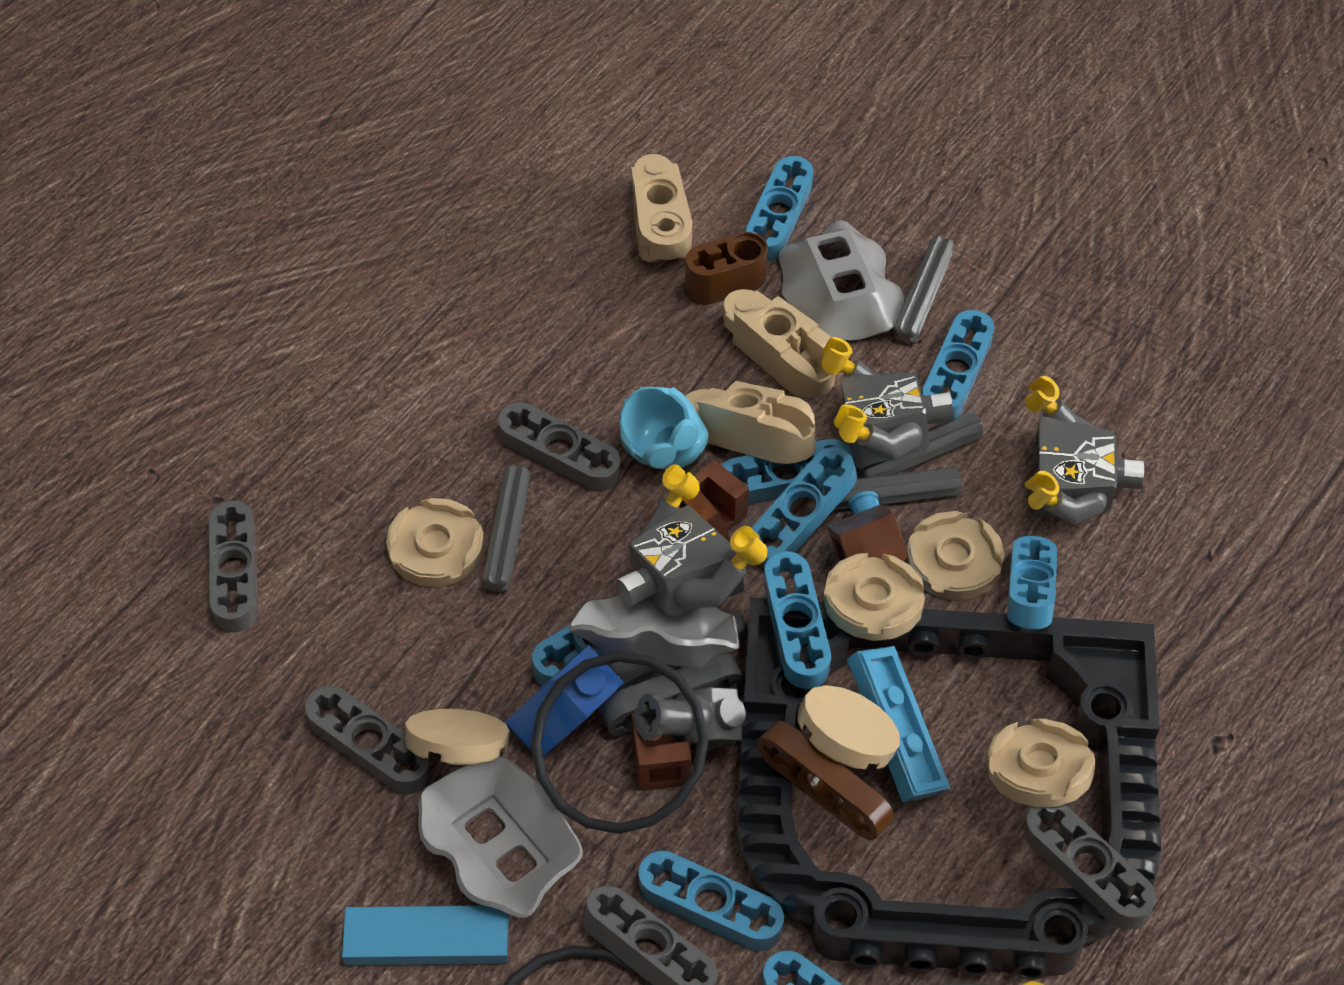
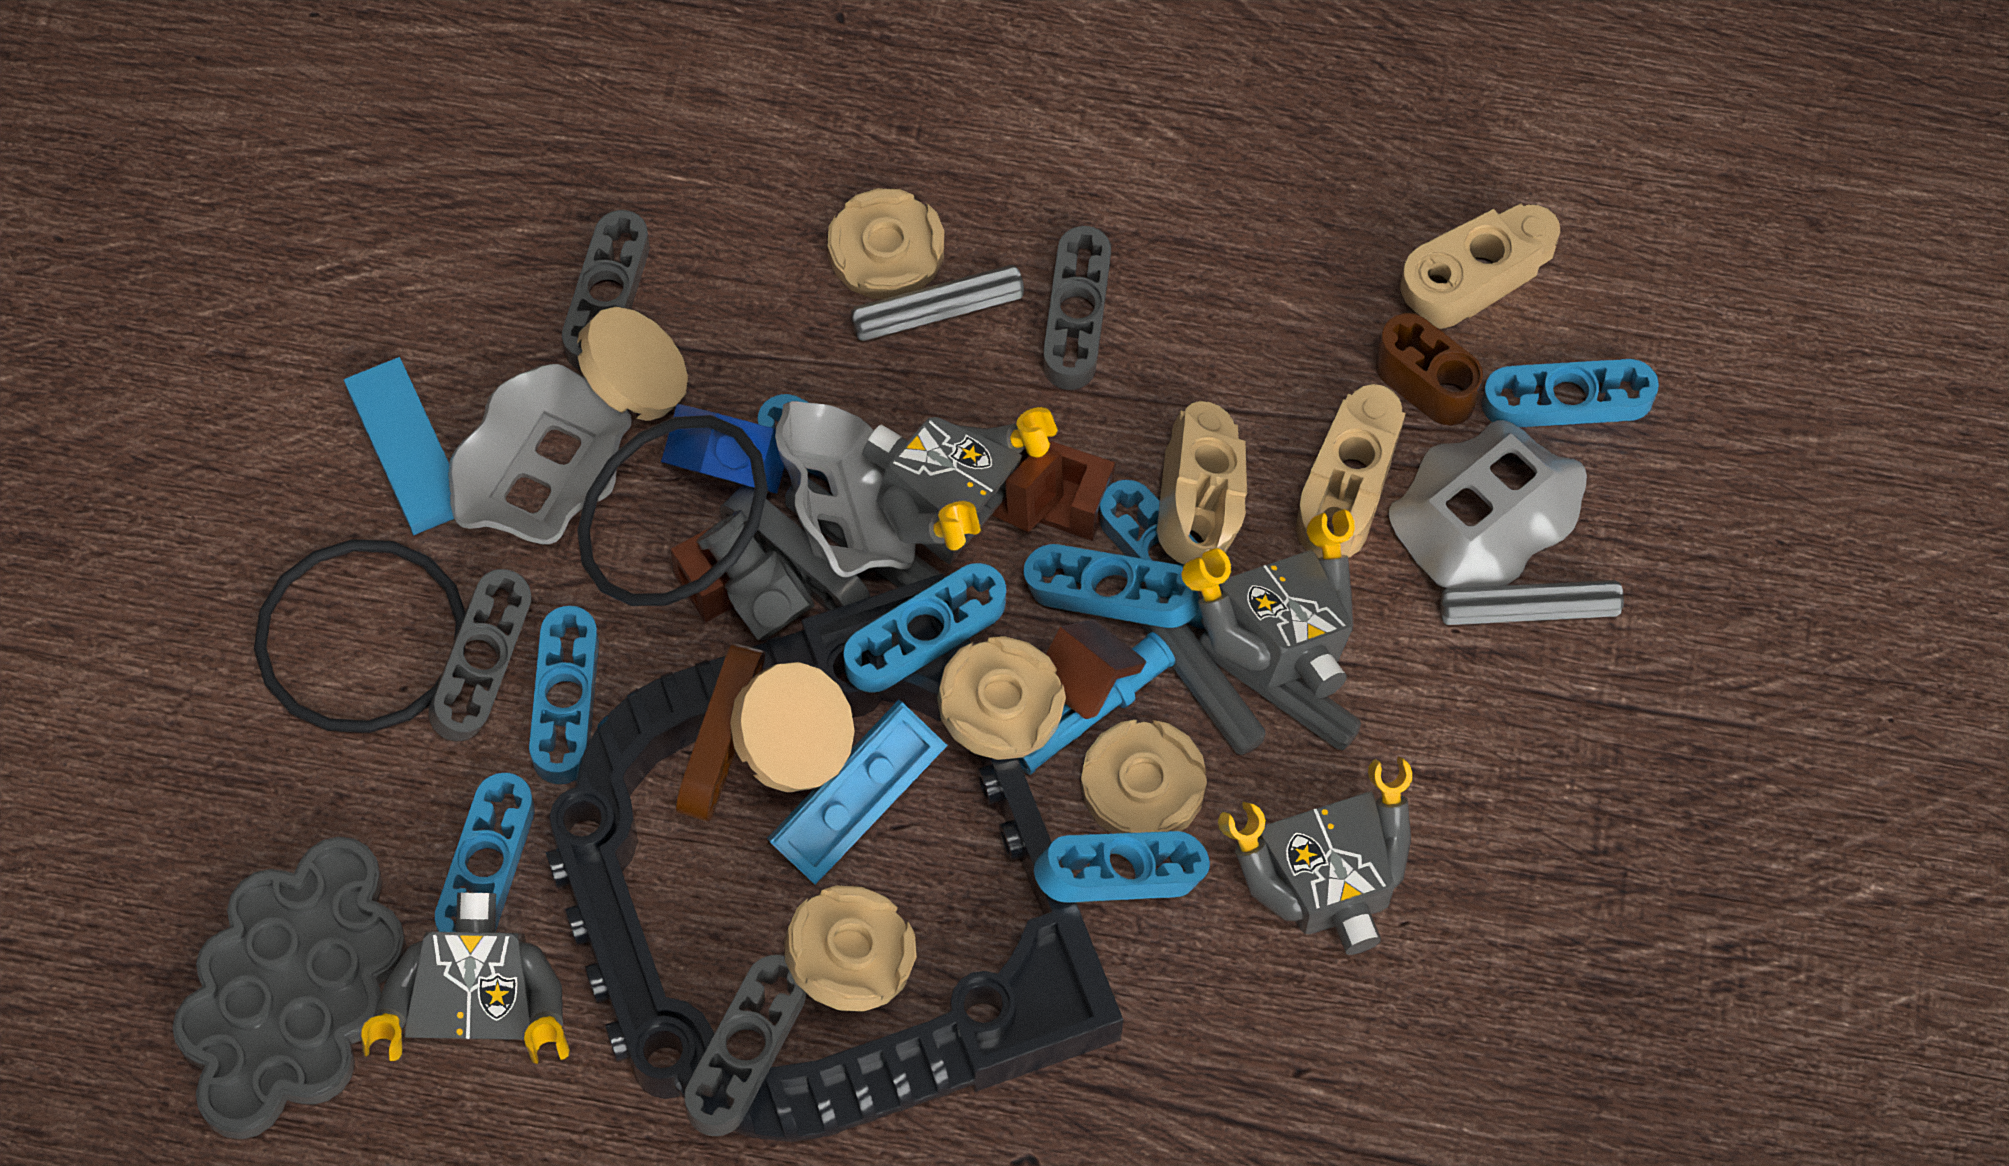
camera: 65 degrees right, 10 degrees up
(244, 581) = (749, 91): dark grey beam -> none
(661, 428) = (1137, 394): medium azure hair -> none
(955, 348) = (1449, 663): dark azure beam -> none

